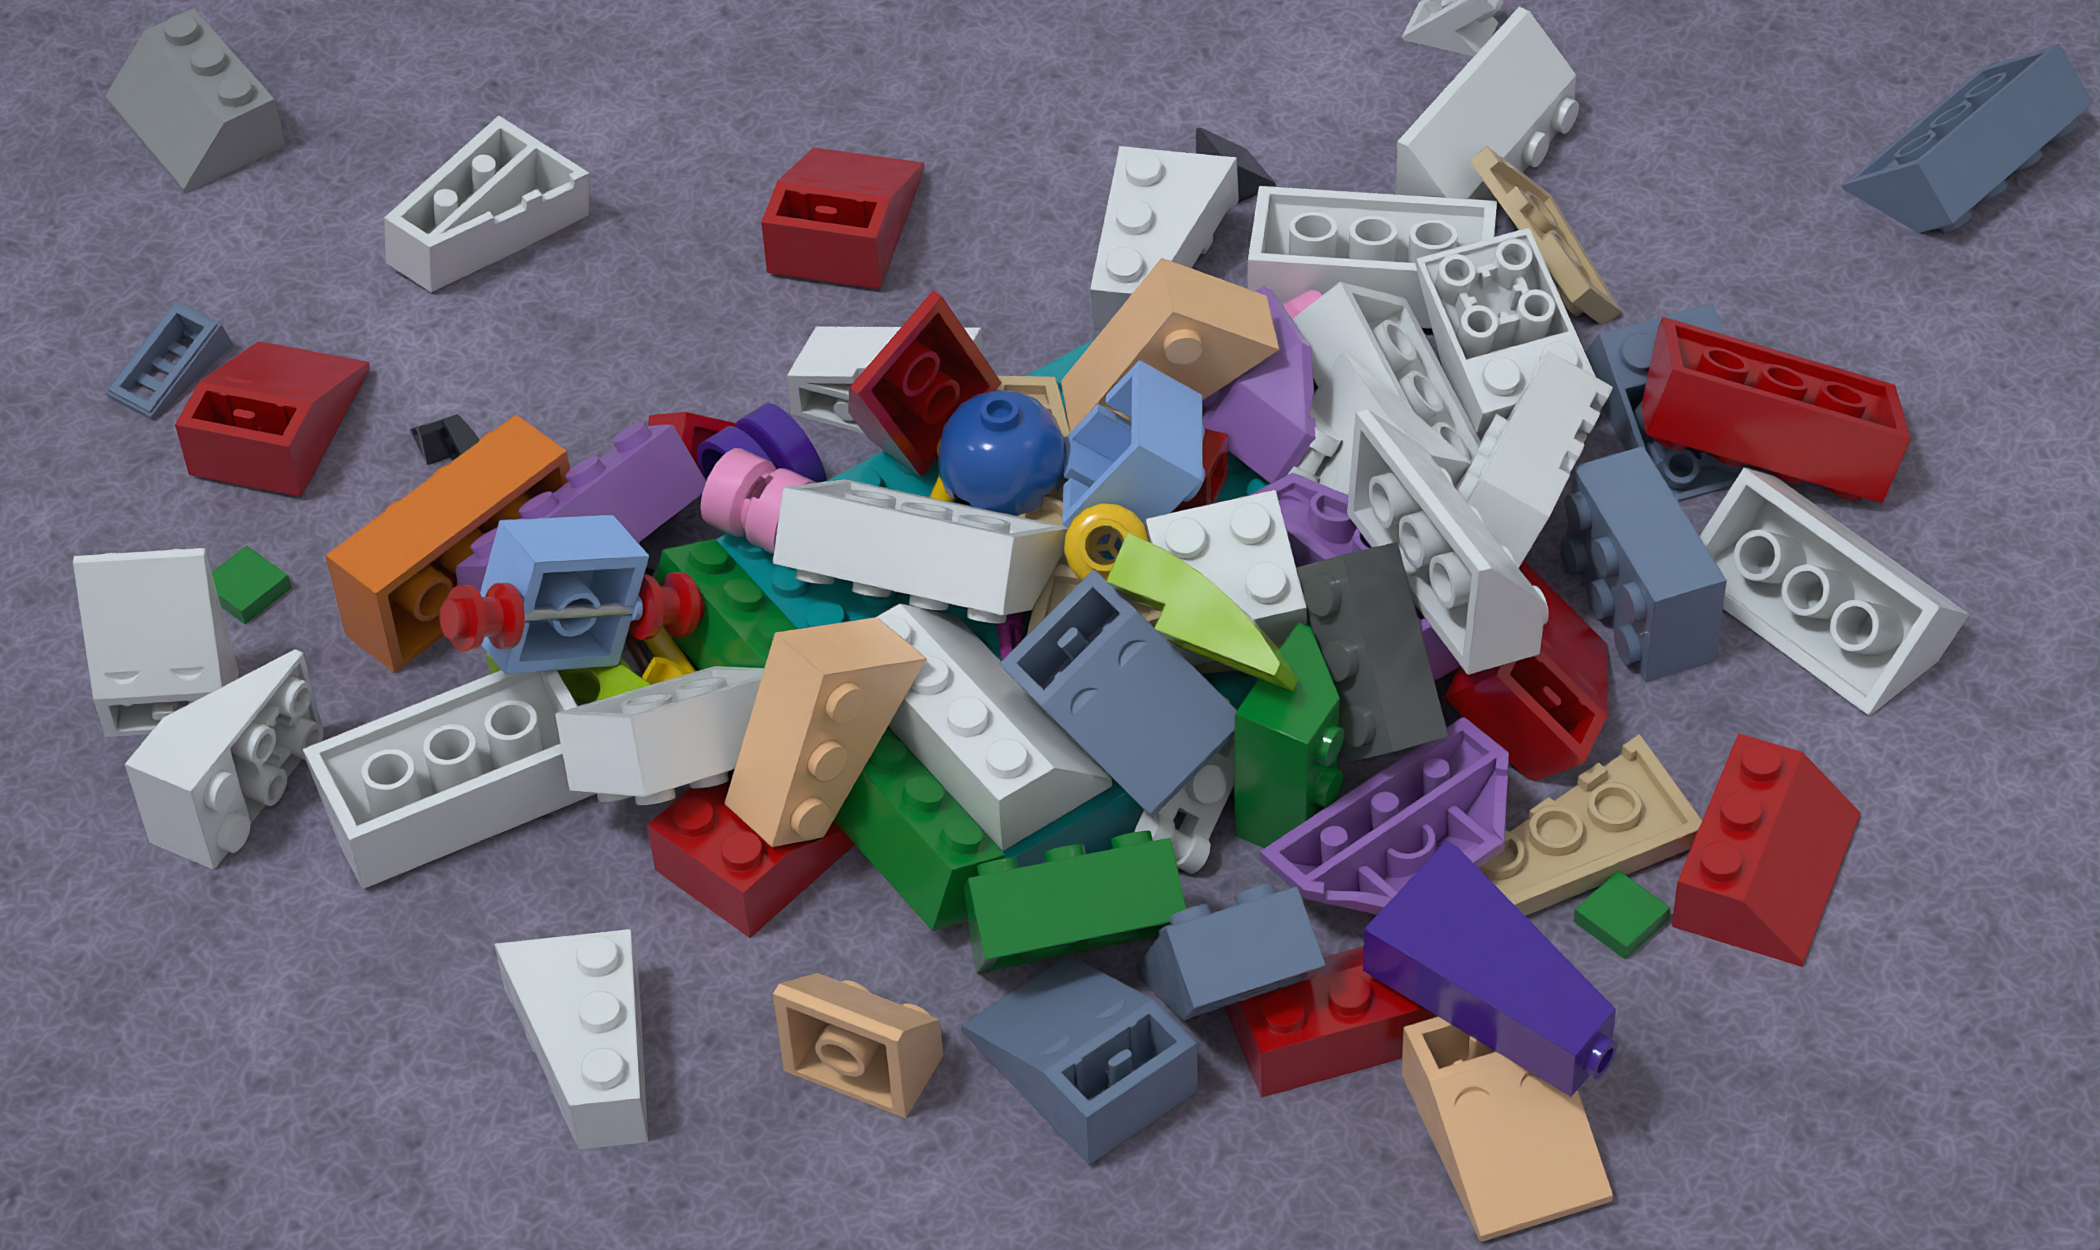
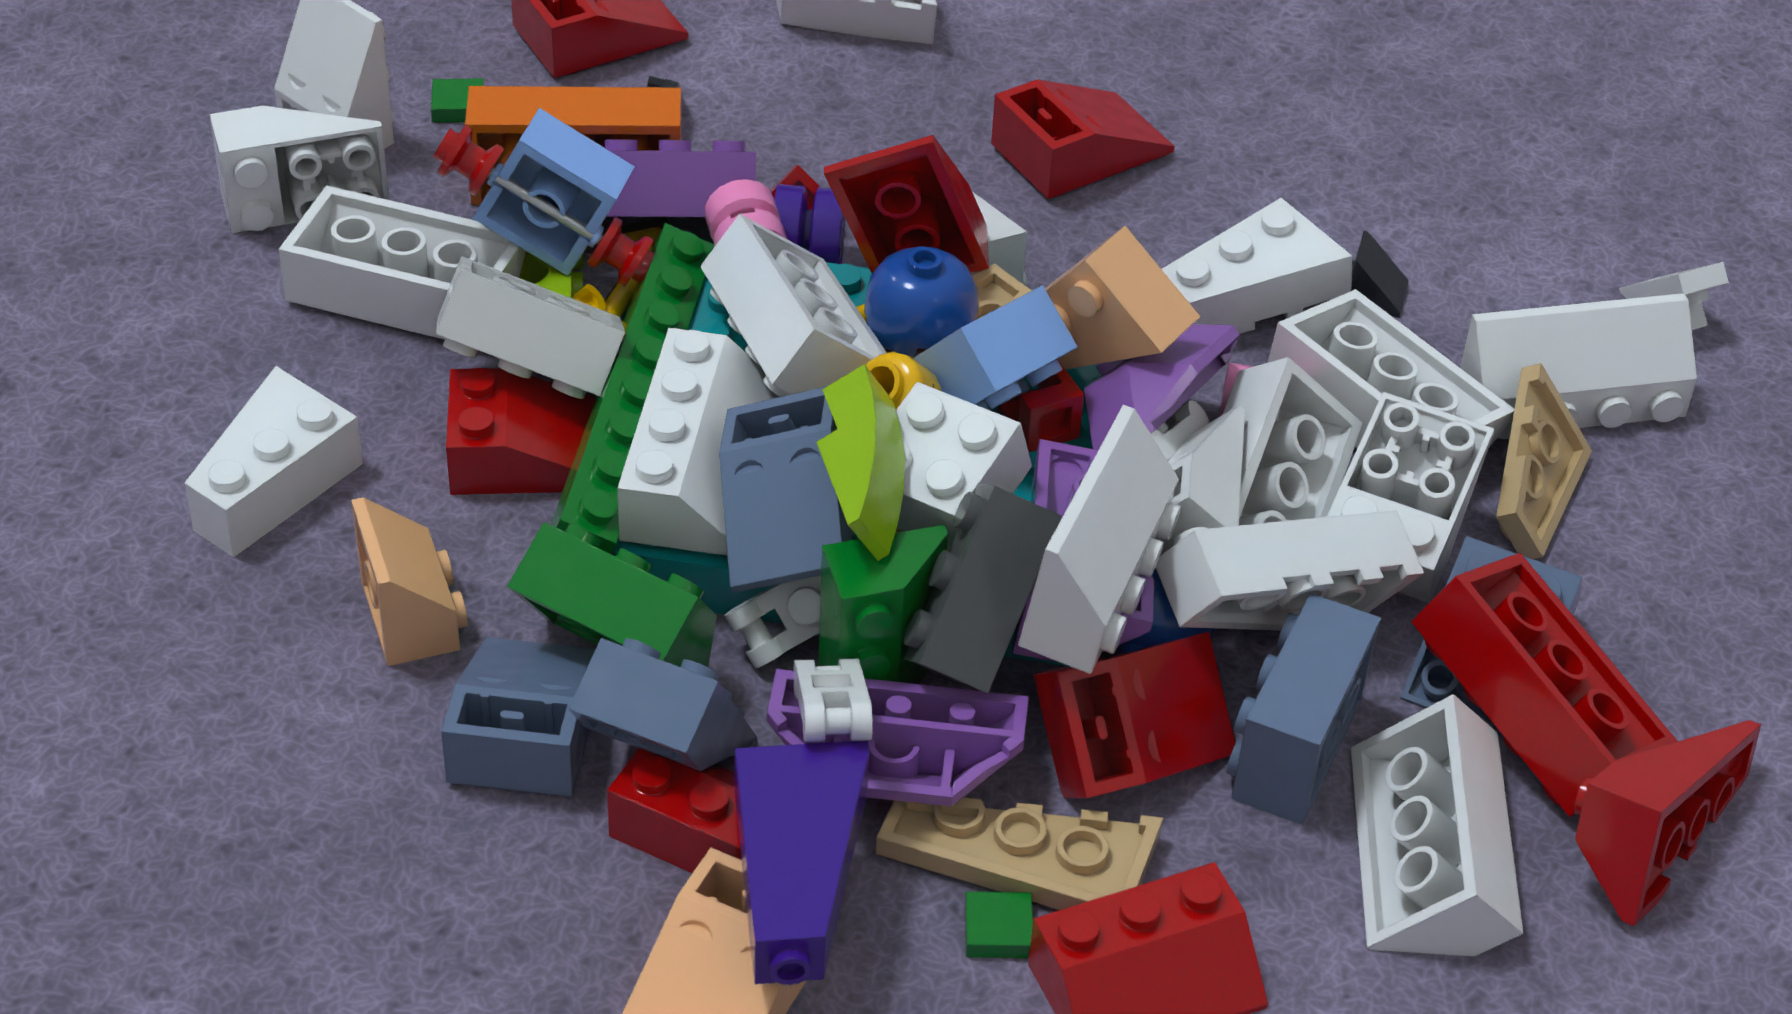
camera: 40 degrees right, 5 degrees down
(817, 724) = (586, 365): light nougat wedge -> none
(1371, 831) = (833, 700): none -> white plate
(1955, 450) = (1655, 809): none -> red wedge

